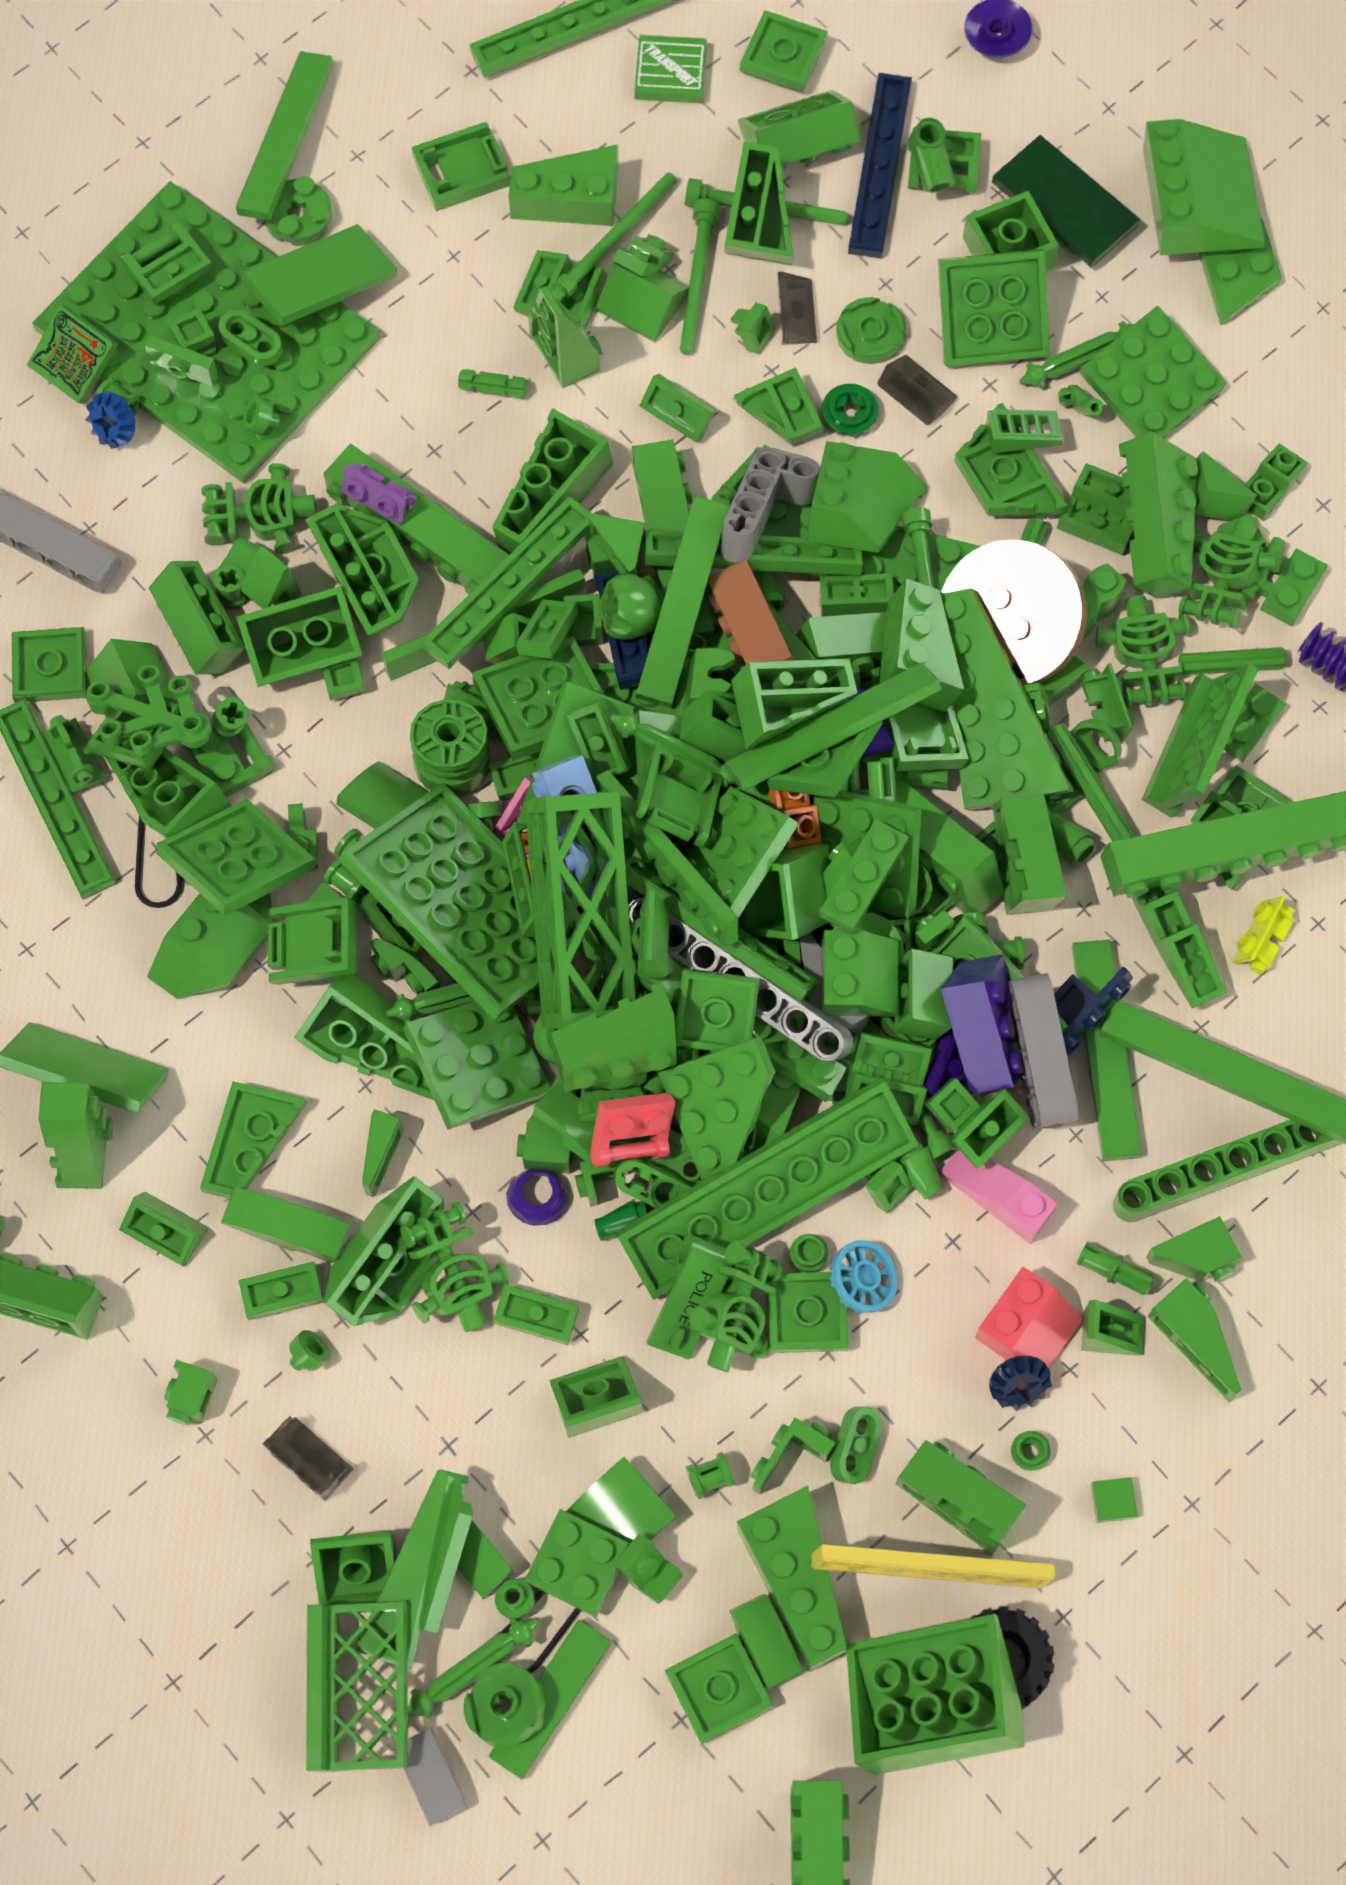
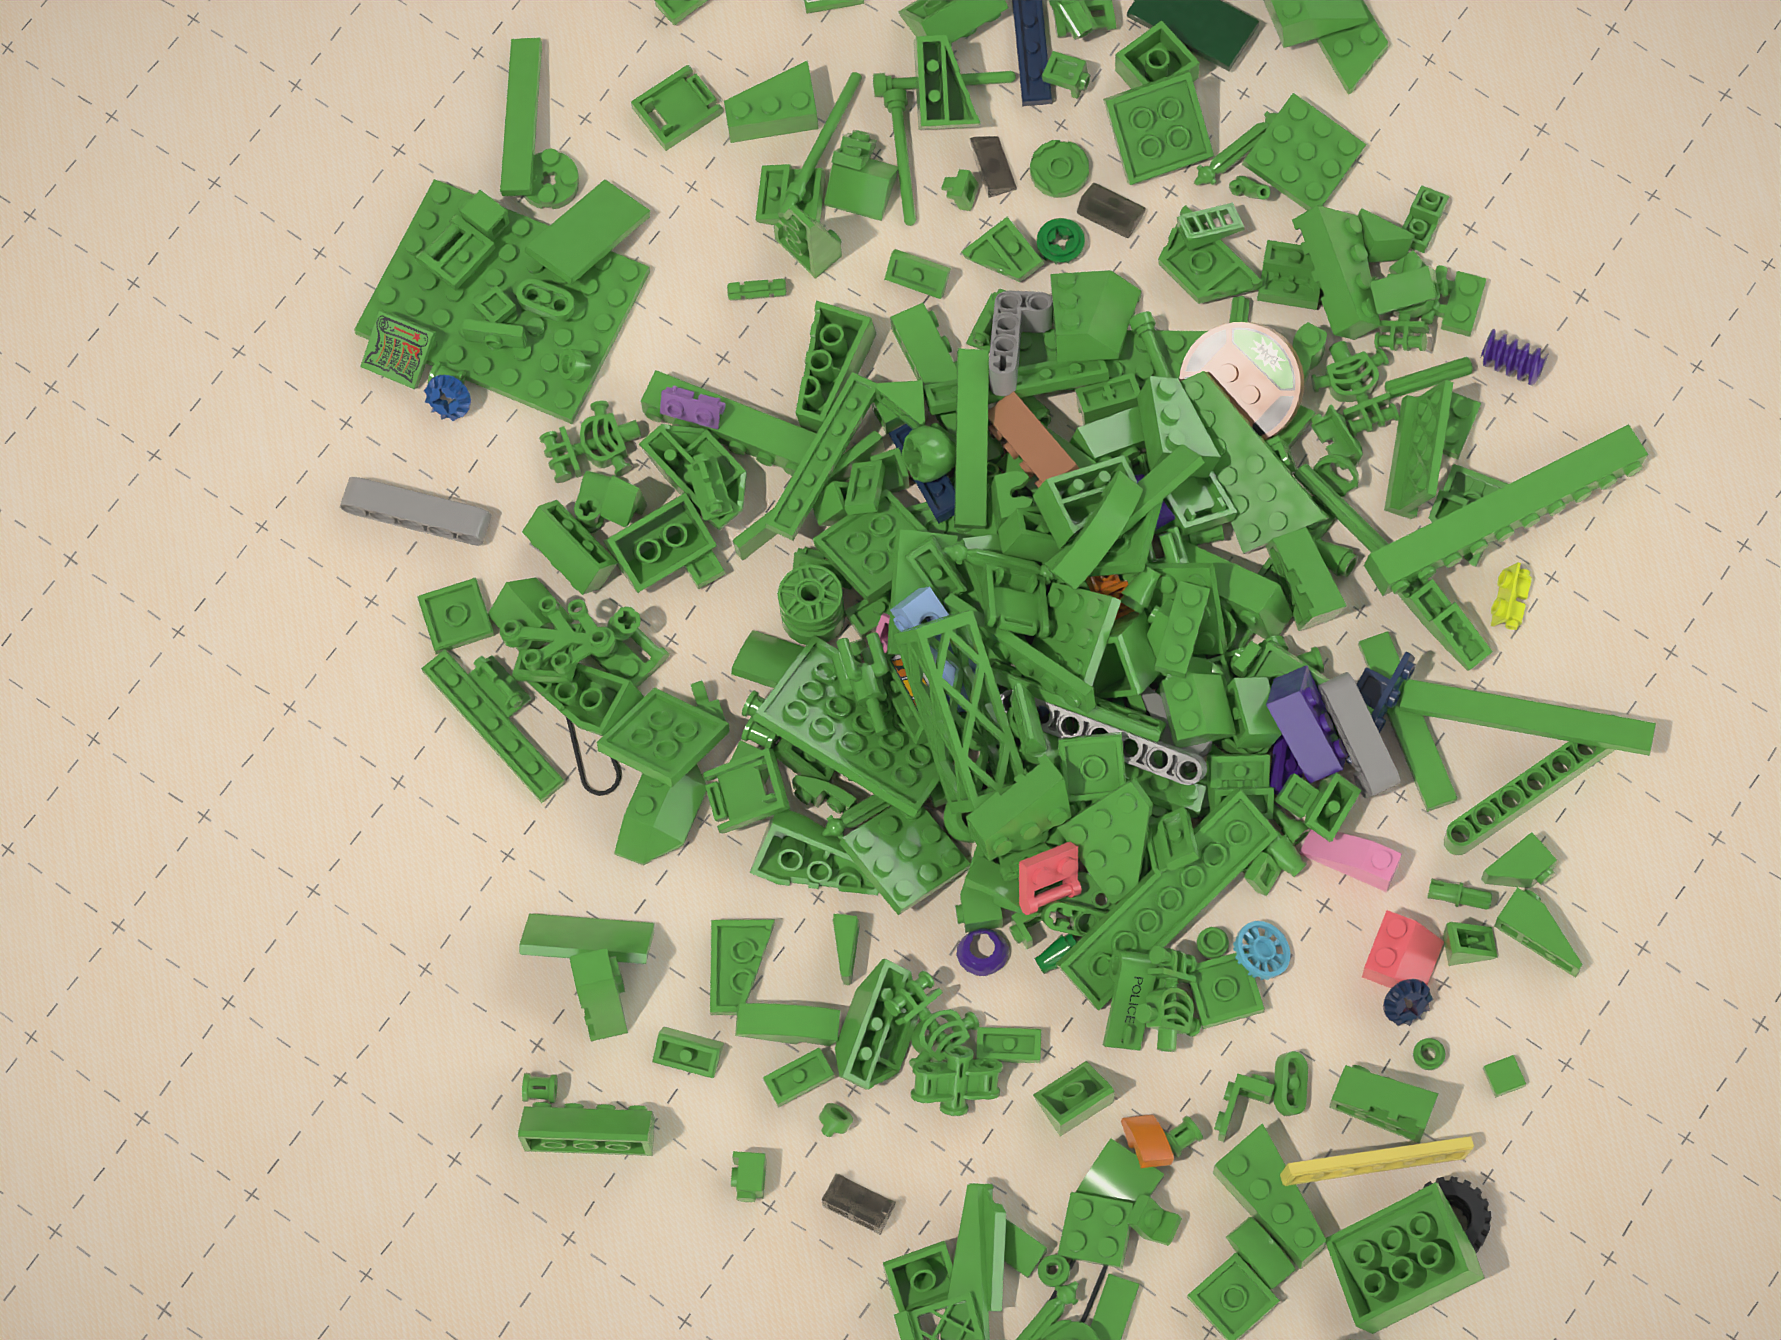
camera: 10 degrees left, 0 degrees up
(210, 230) = (485, 215): none -> bright green brick
(369, 585) = (709, 487): none -> bright green hinge
(460, 1341) = (956, 1080): none -> bright green axle
(483, 846) = (865, 678): none -> bright green plant
(667, 1471) = (1148, 1140): none -> orange slope
(787, 1122) = (1172, 841): none -> bright green plate
(795, 738) = (1099, 532): none -> bright green slope
(827, 820) = (1140, 590): none -> bright green cone
(907, 227) = (1067, 73): none -> bright green bracket
(1229, 551) = (1405, 289): none -> bright green hinge

